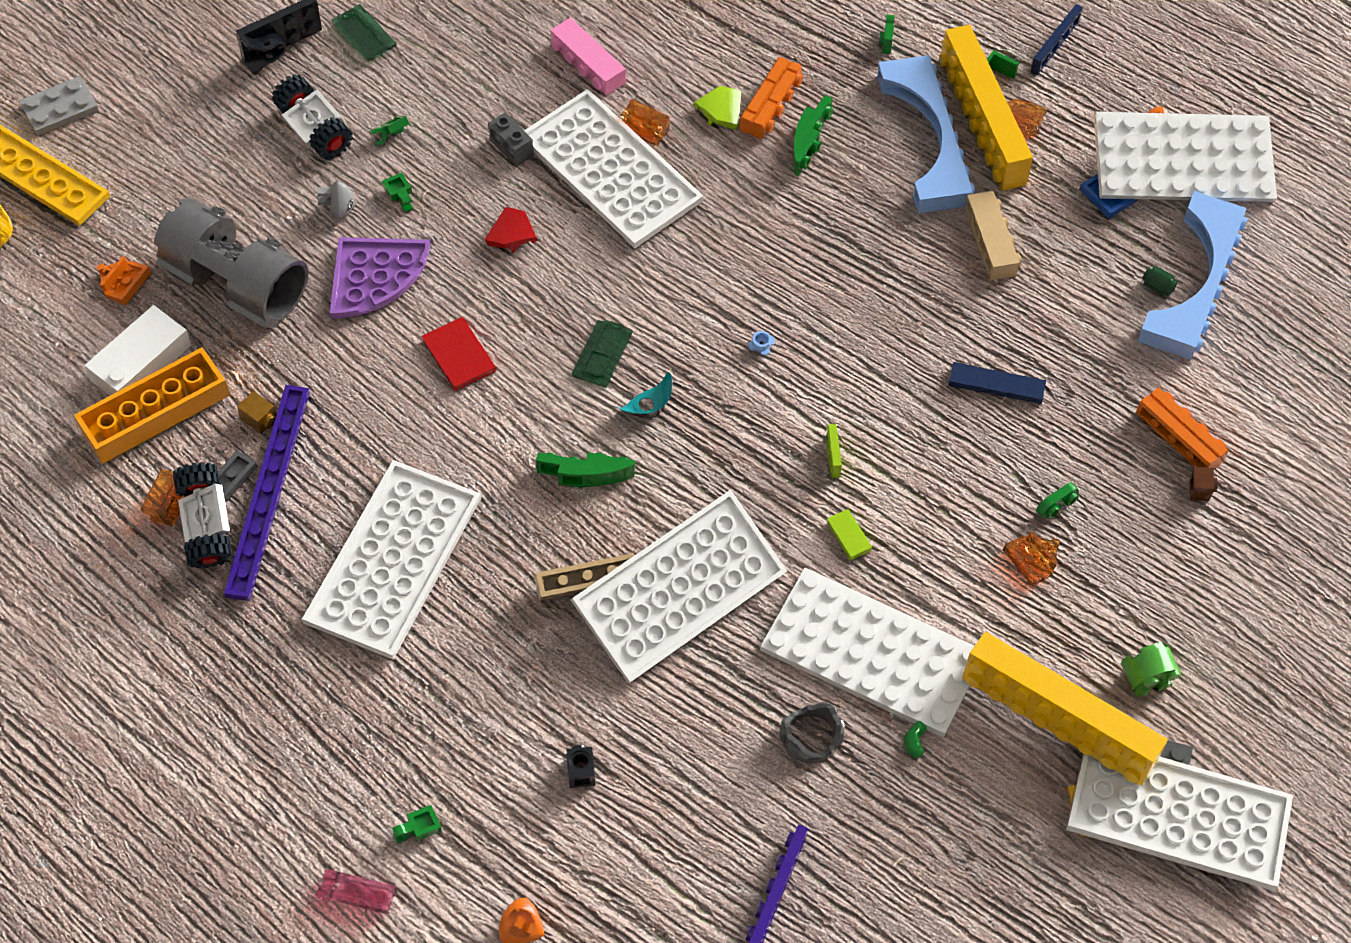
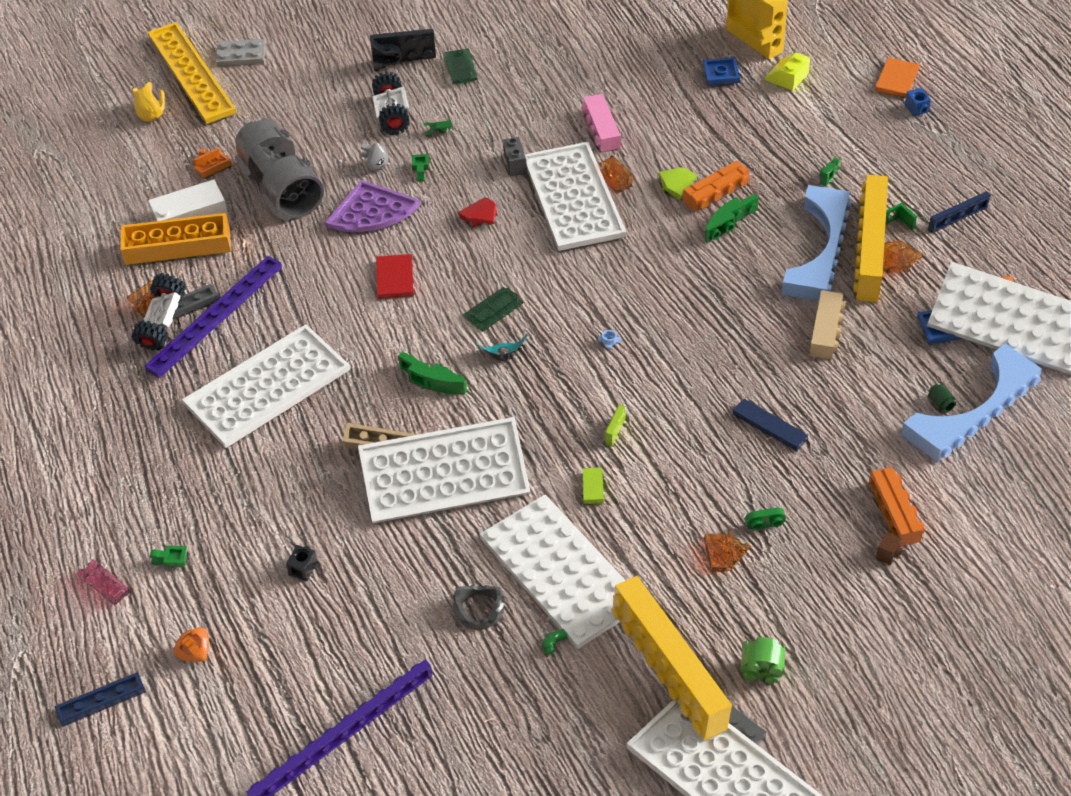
camera: 30 degrees right, 10 degrees down
(257, 412) = (238, 265): pearl gold brick -> none

